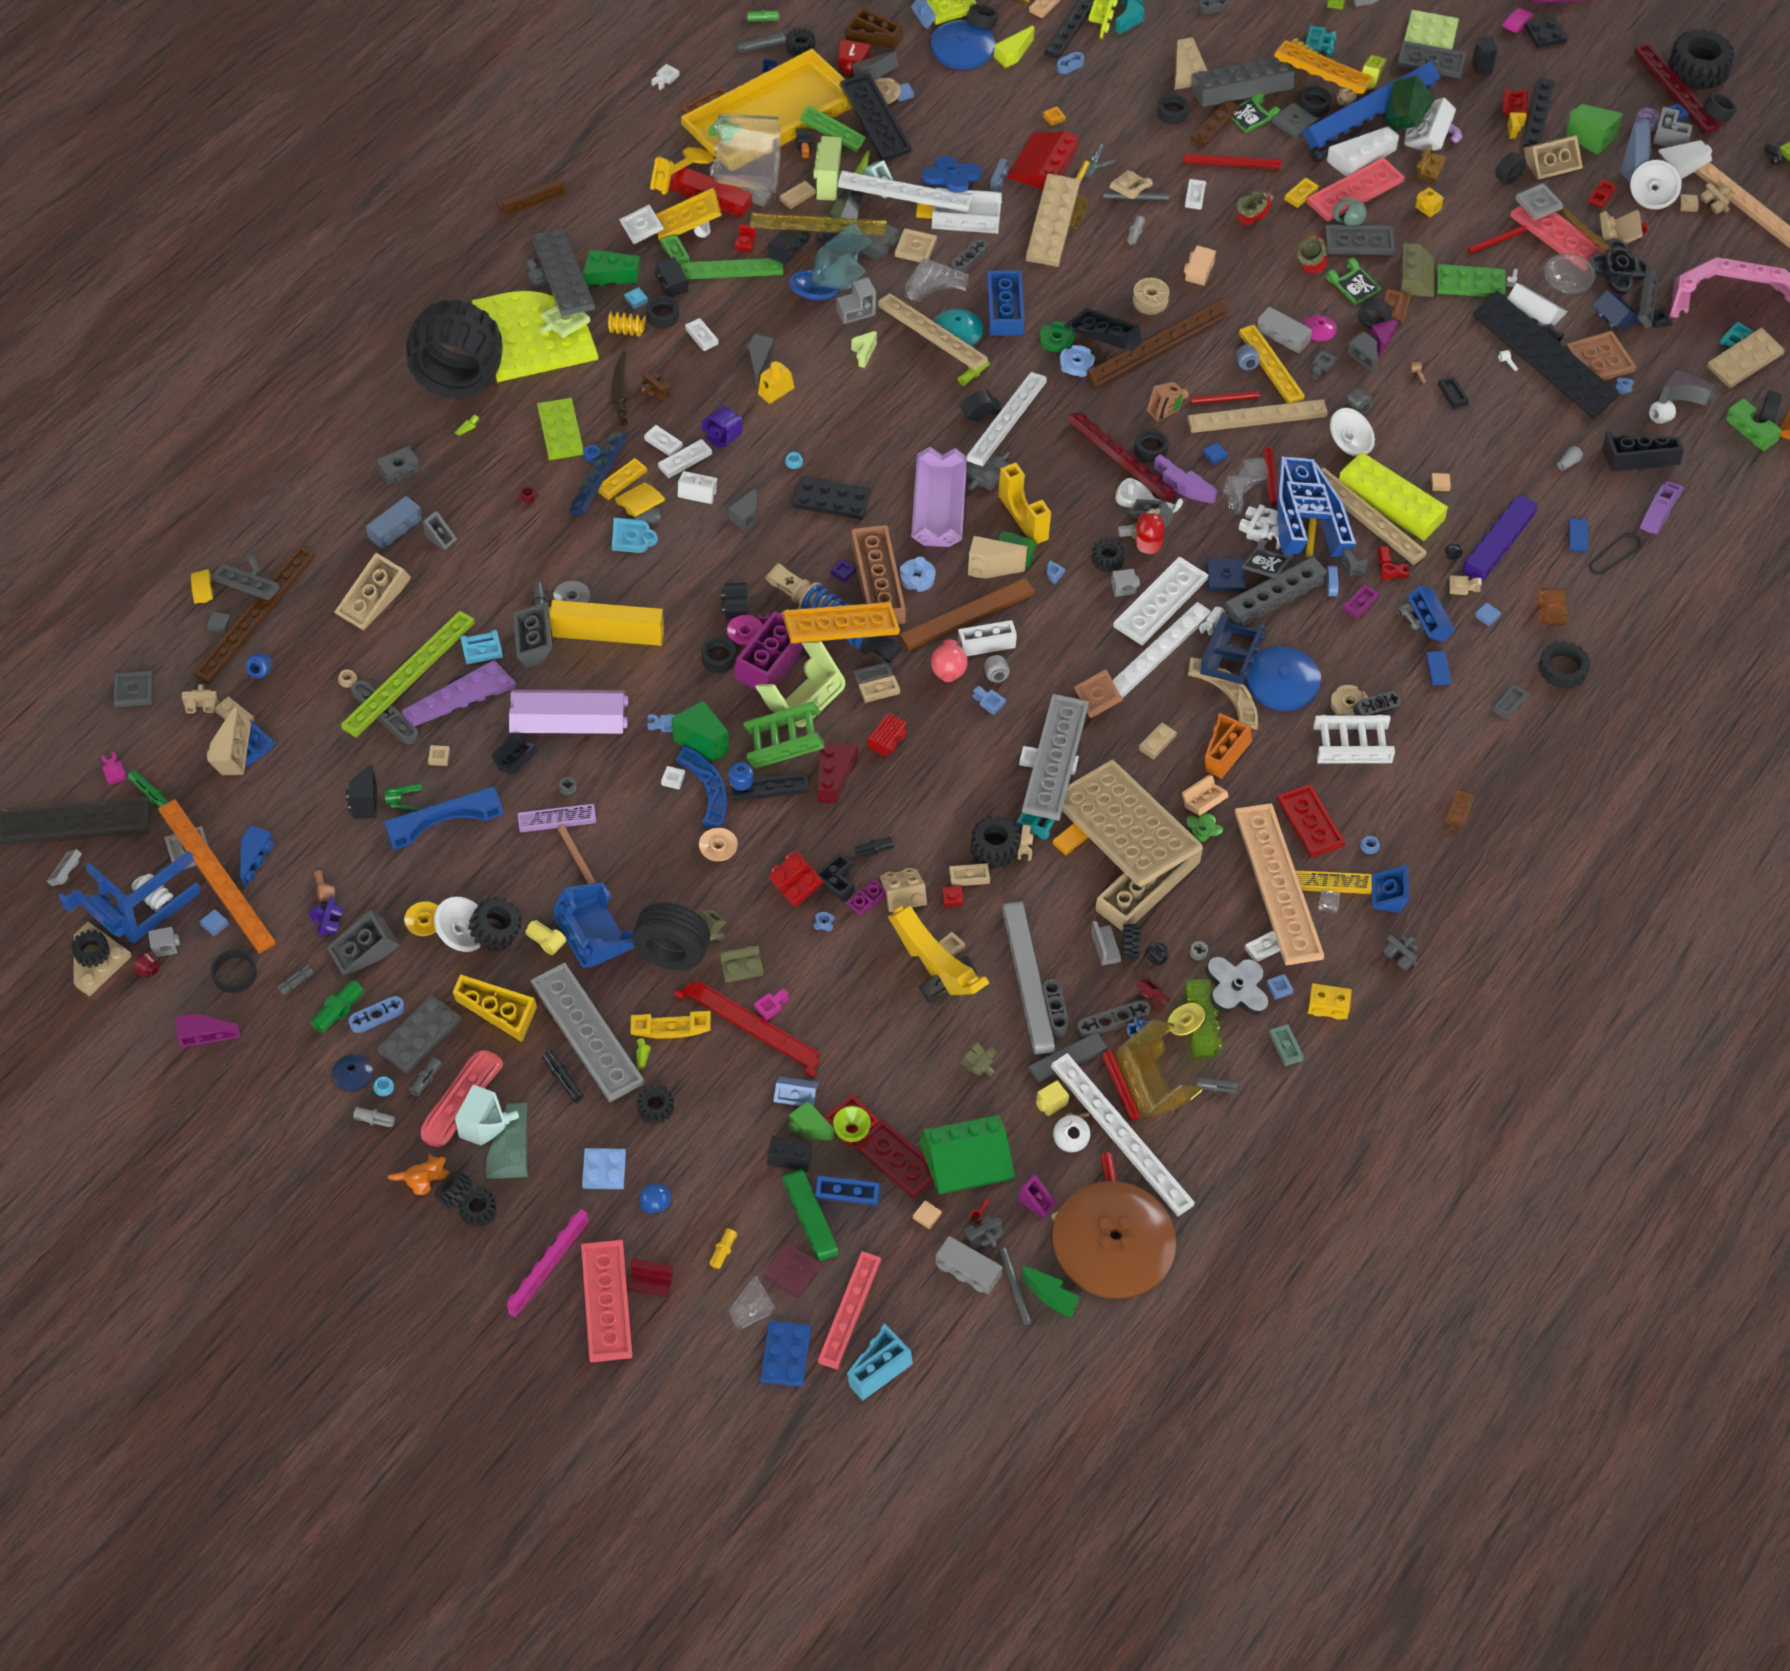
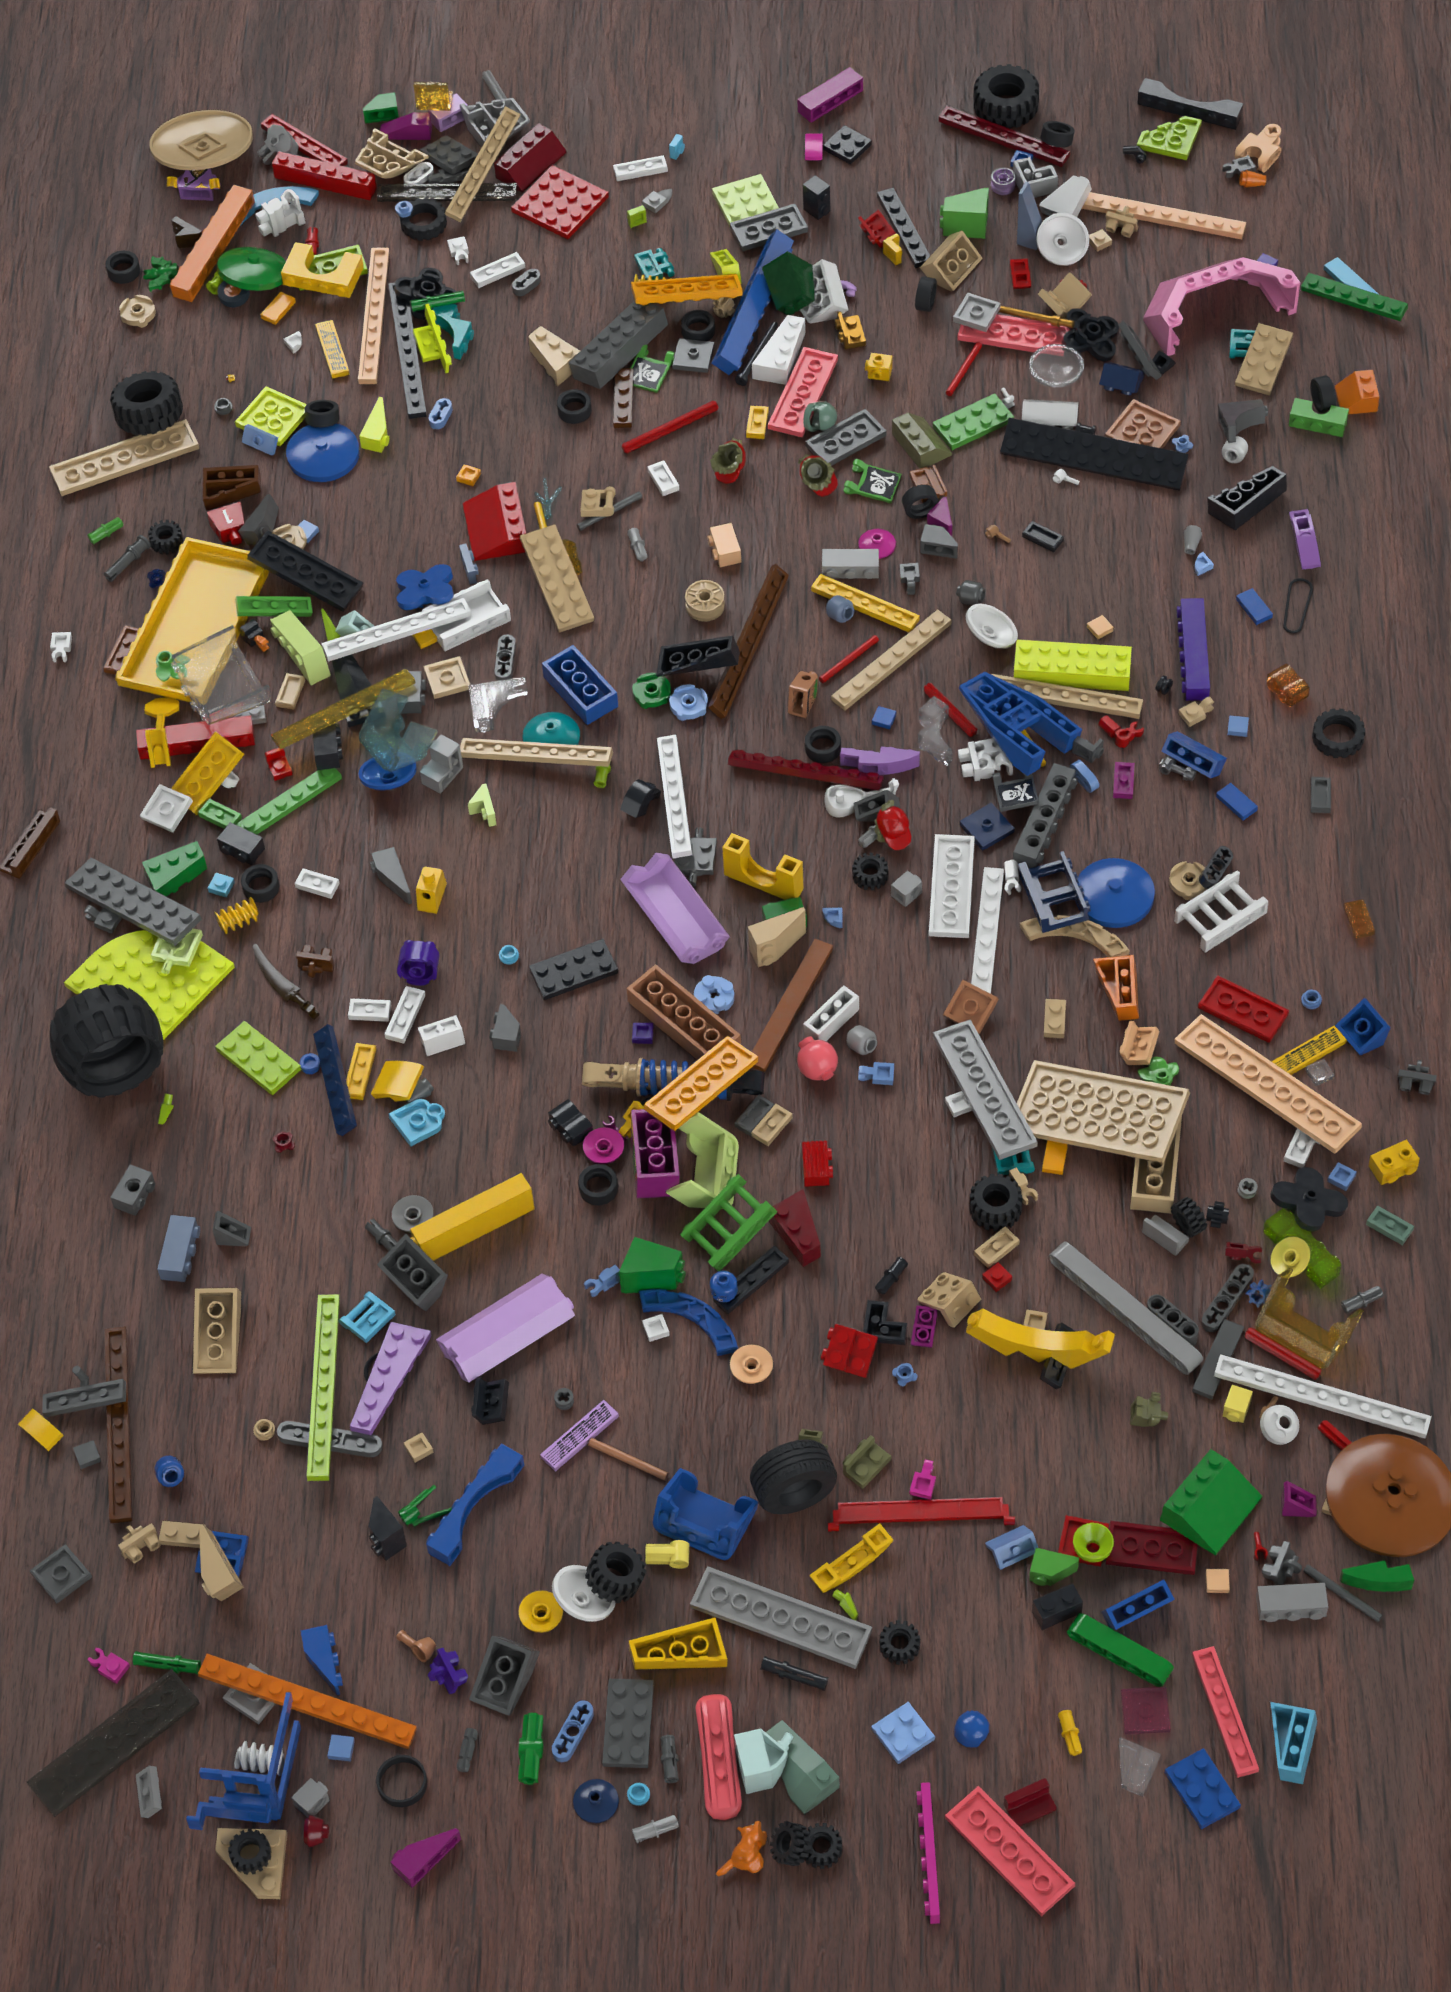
camera: 30 degrees left, 0 degrees up
(1564, 481) = (1203, 564): none -> light blue tile

